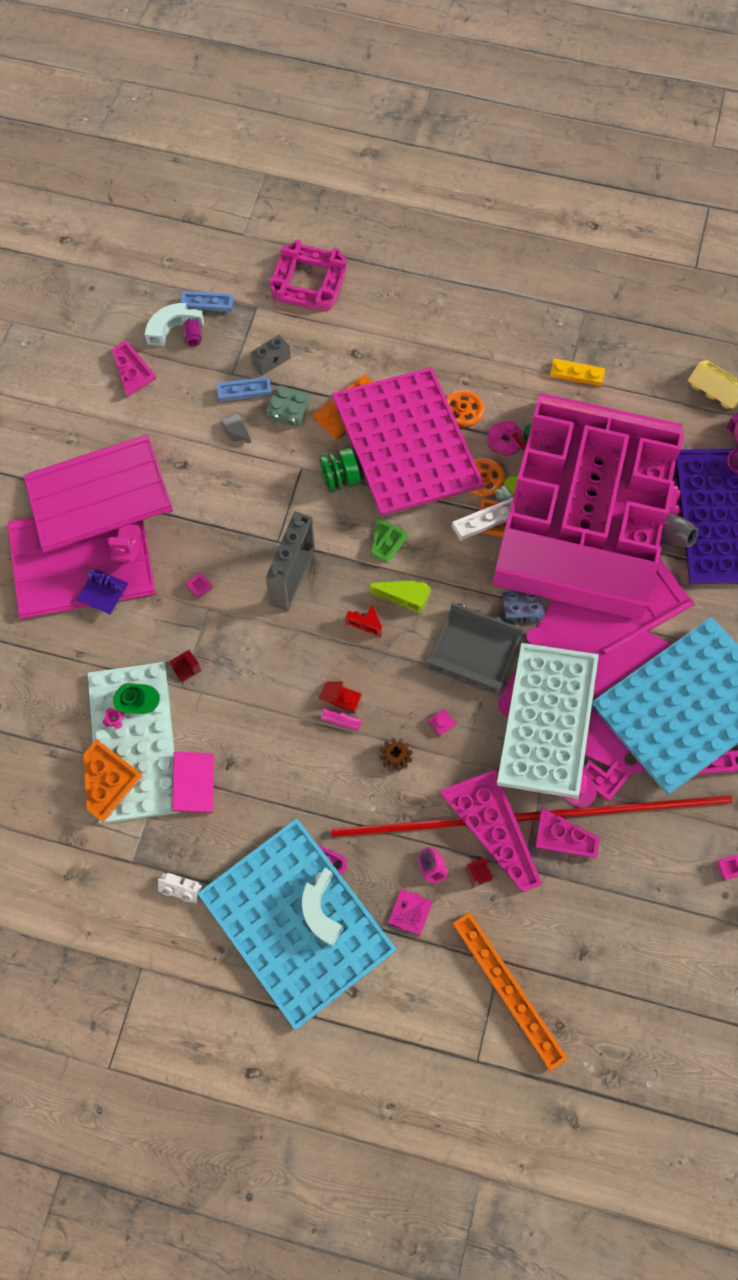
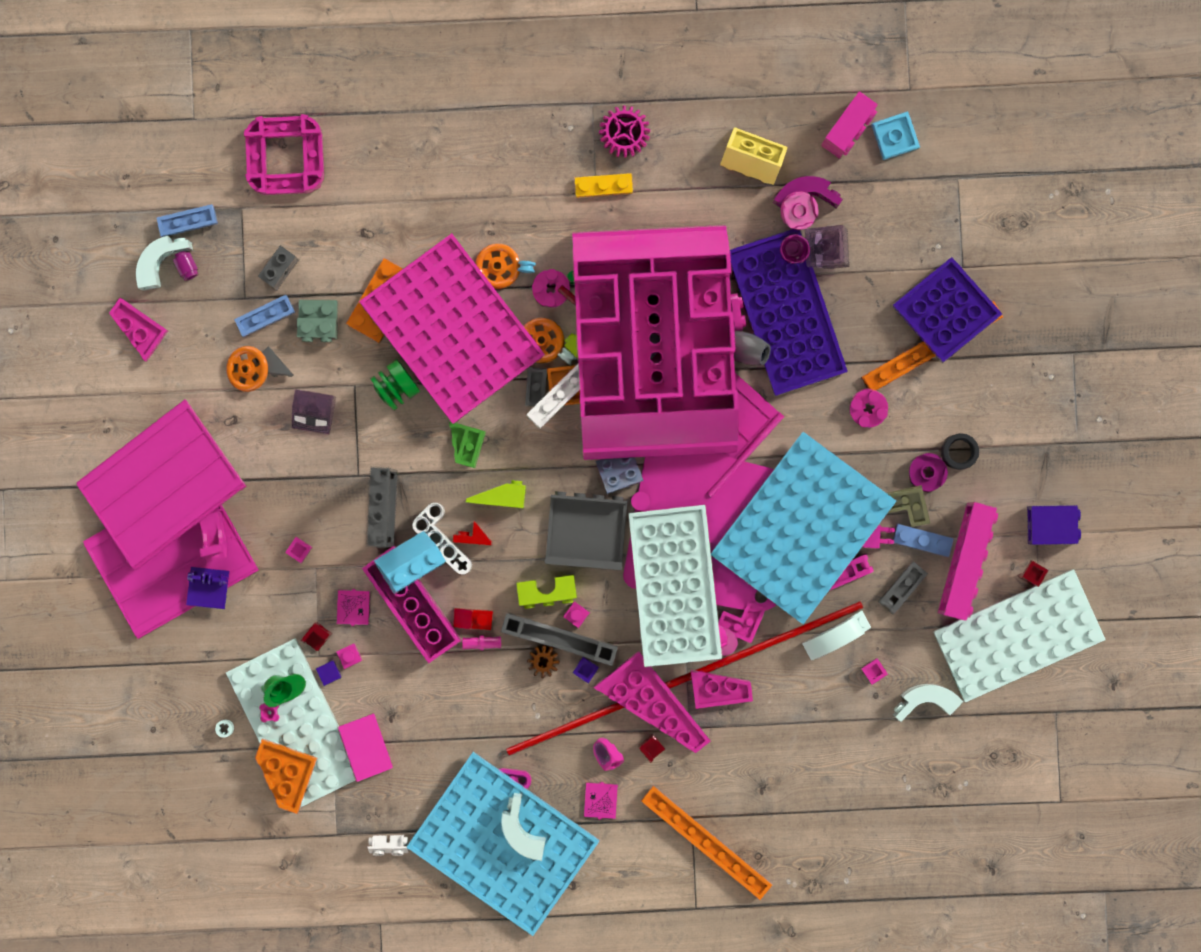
camera: 20 degrees left, 20 degrees up
(59, 722) = (218, 728): none -> light aqua bush
(184, 703) = (328, 672): none -> dark purple tile
(210, 694) = (349, 656): none -> dark pink plate
(212, 424) = (261, 370): none -> orange plate
(230, 652) = (353, 607): none -> dark pink piece
(257, 473) = (313, 411): none -> clear purple slope
(287, 662) = (416, 614): none -> dark pink brick
(300, 618) = (409, 561): none -> medium azure slope
(337, 617) = (445, 541): none -> white beam
(403, 691) = (530, 595): none -> lime arch
(435, 776) = (585, 670): none -> dark purple plate
(445, 754) = (559, 638): none -> dark grey arch
(468, 506) = (535, 386): none -> dark grey plate
(489, 414) = (526, 266): none -> medium azure bush
(611, 330) = (620, 124): none -> dark pink gear
(699, 817) = (837, 636): none -> light aqua arch

